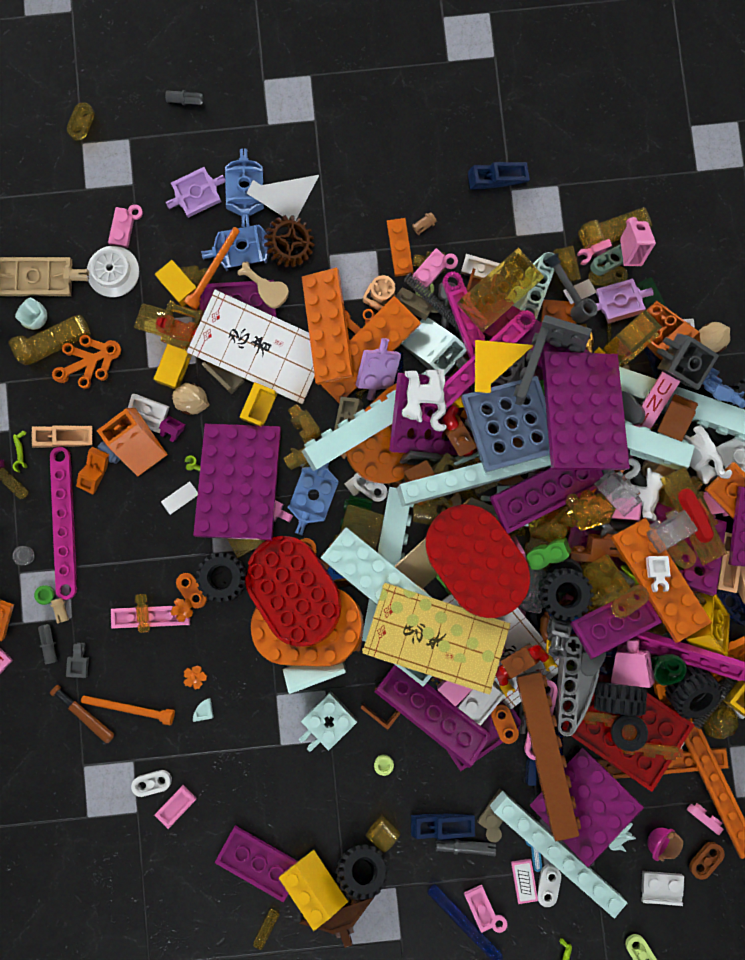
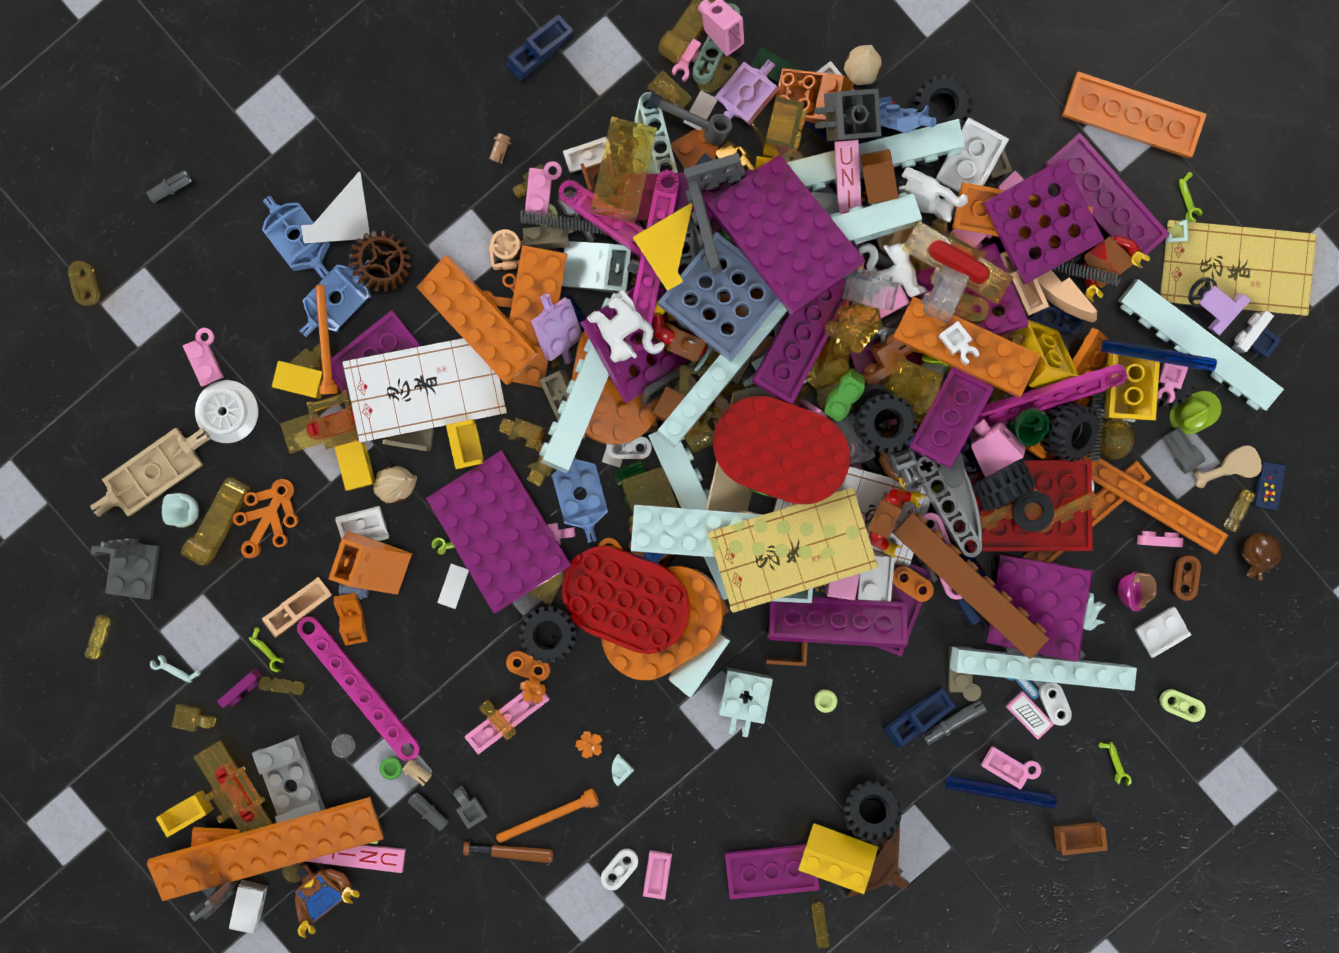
camera: 30 degrees left, 5 degrees up
(171, 427) = (396, 524): magenta tile -> none
(196, 192) = (251, 275): lavender plate -> none
(271, 293) = (399, 325): tan piece -> none
(383, 834) = (868, 764): clear yellow piece -> none
(400, 247) = (492, 189): orange plate -> none
(629, 602) = (951, 390): clear yellow plate -> none
(632, 409) = (830, 198): dark grey tile -> none

